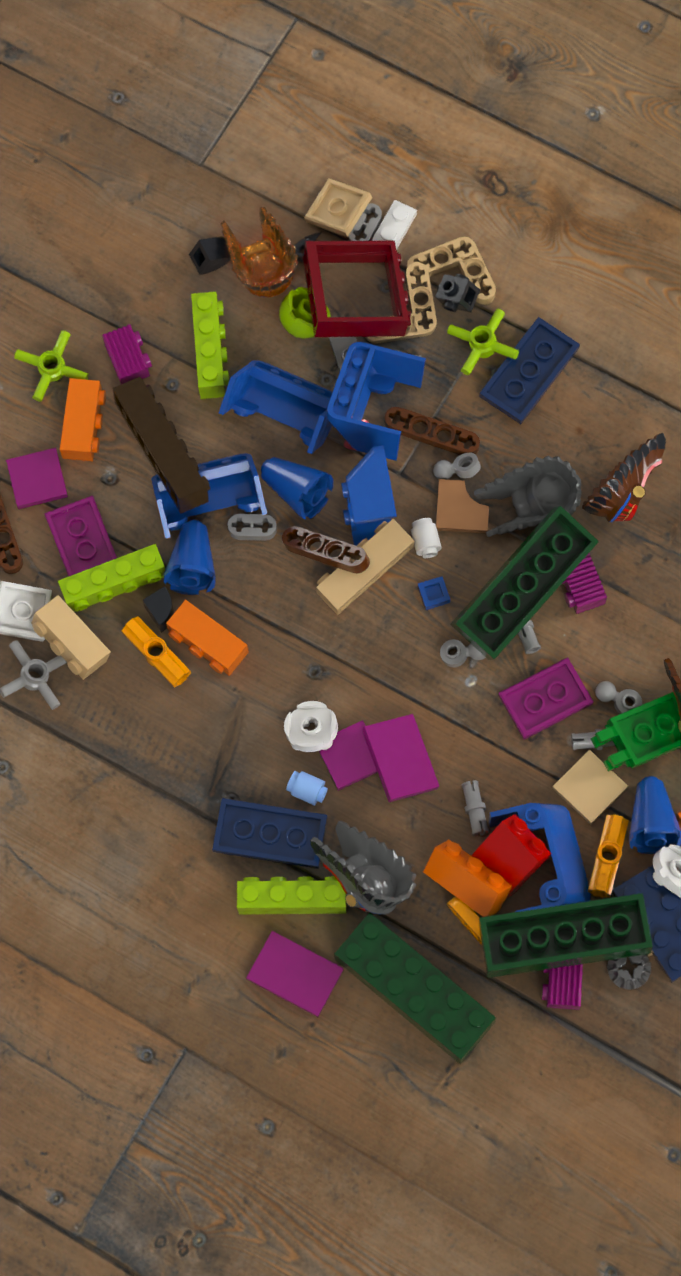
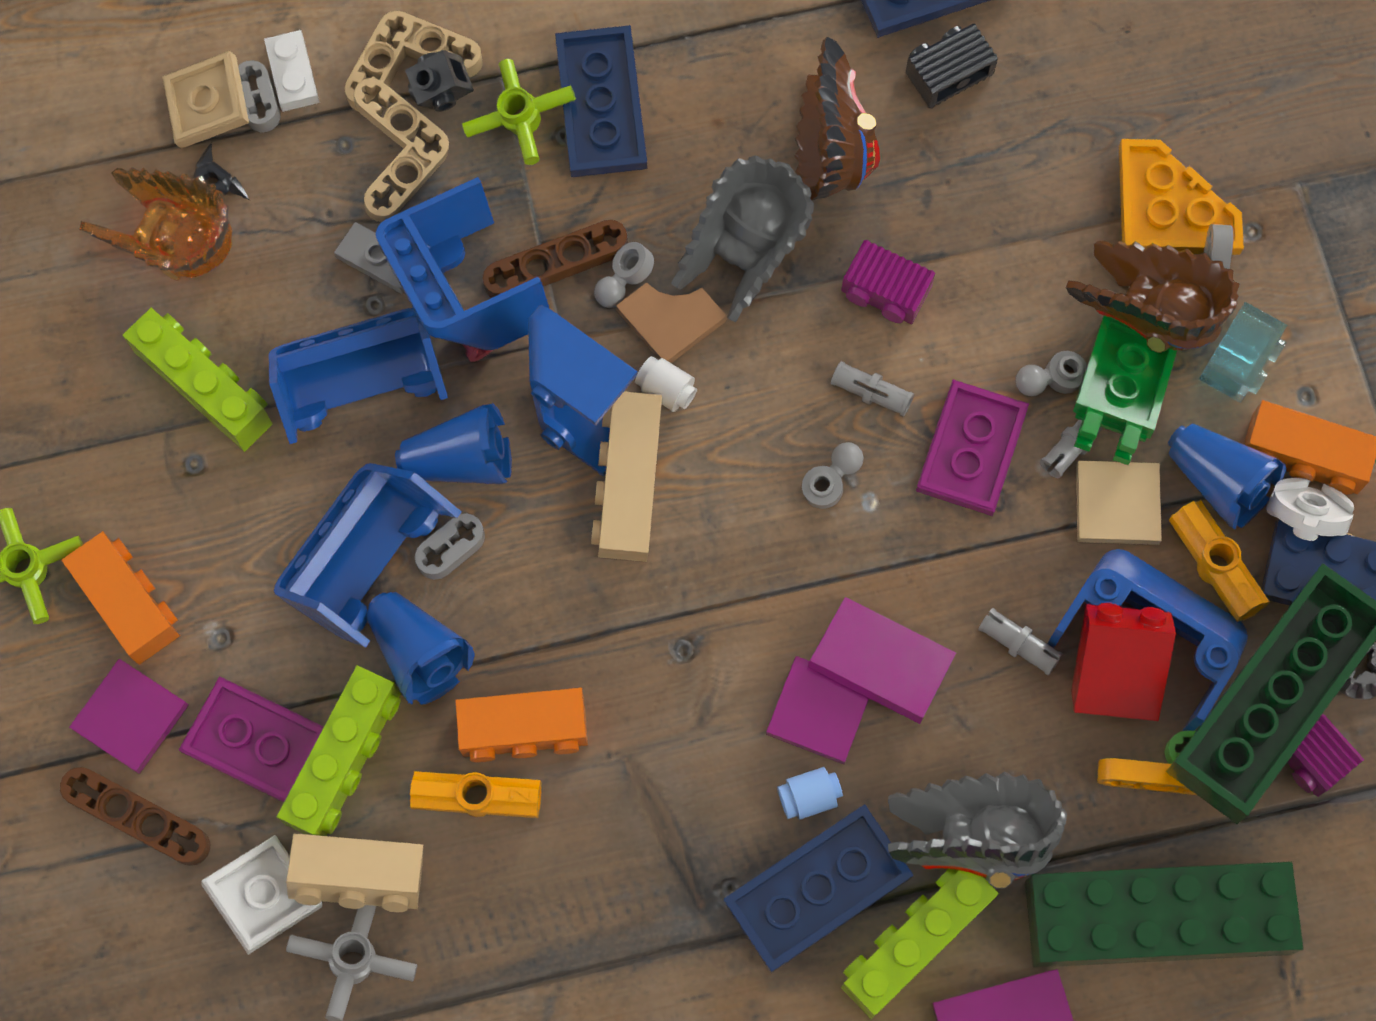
camera: 45 degrees left, 0 degrees up
(126, 354) = (105, 474): magenta brick -> none
(159, 607) = (431, 738): black brick -> none
(161, 445) = (253, 541): dark brown brick -> none
(210, 254) = (101, 274): black brick -> none
(296, 313) = (280, 250): lime cylinder -> none
(316, 739) = (750, 740): white plate -> none
(327, 546) = (568, 499): reddish brown beam -> none
(355, 252) = (311, 102): dark red window -> none
(433, 593) = (733, 439): blue tile -> none
(467, 878) = (1100, 729): orange brick -> none
(524, 583) = (839, 332): dark green brick -> none

